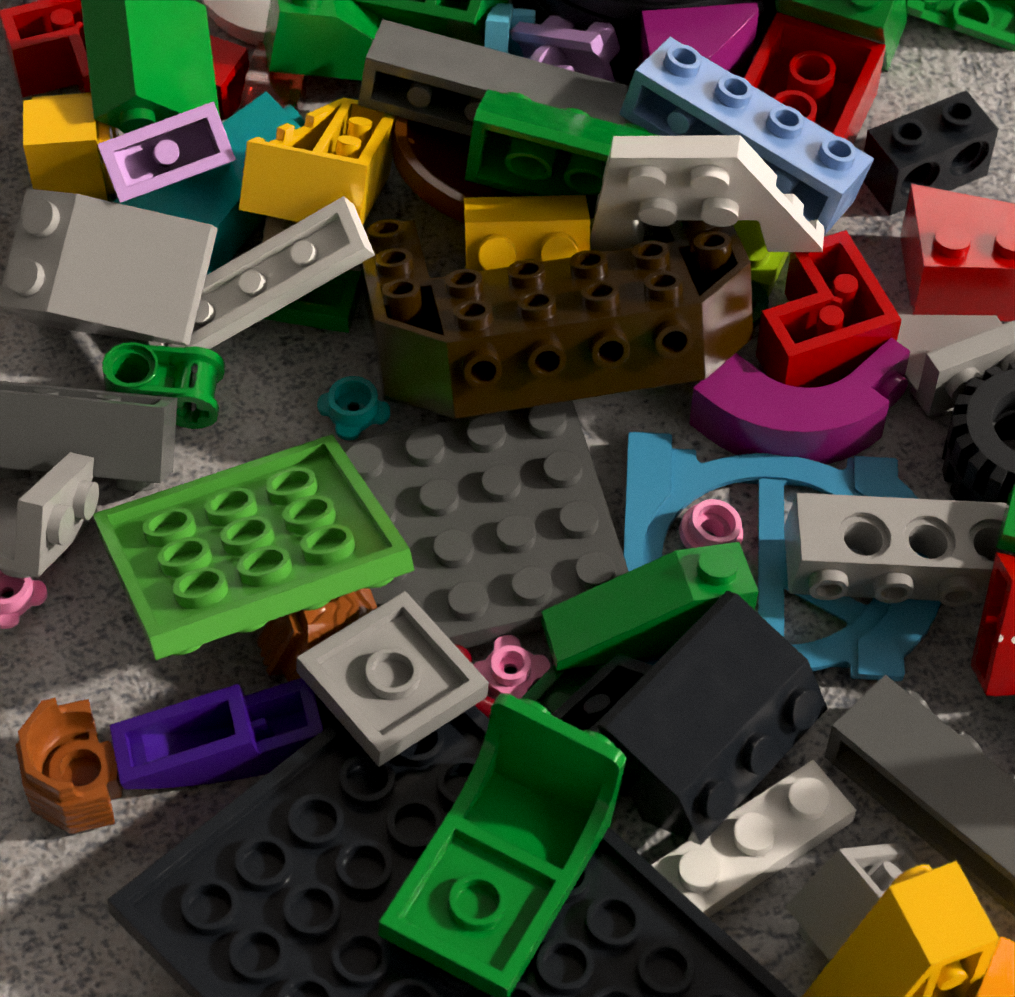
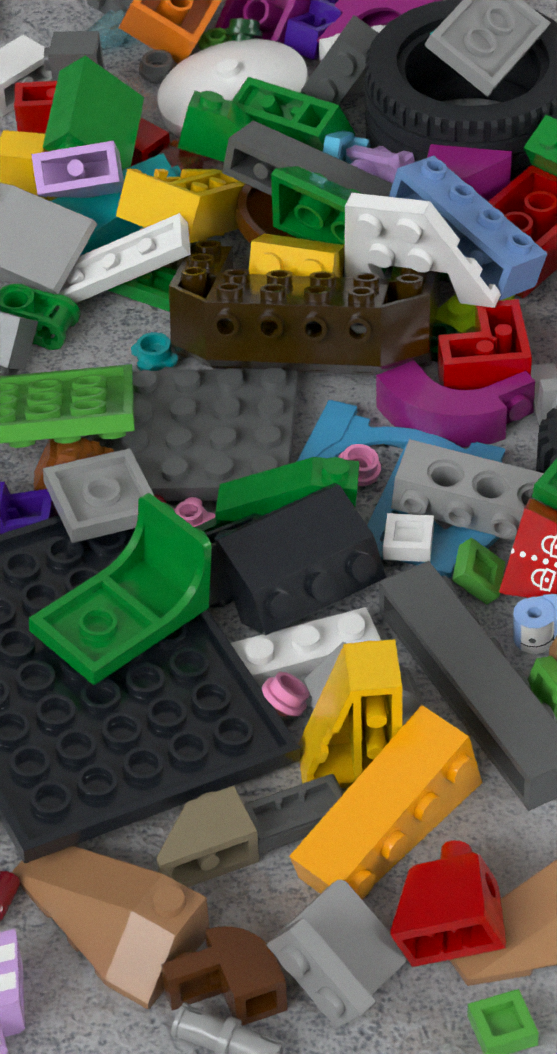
camera: 20 degrees right, 10 degrees down
(763, 932) = (286, 694): none -> bright pink plate
(836, 638) = (408, 537): none -> white plate
(943, 666) = (478, 571): none -> bright green plate

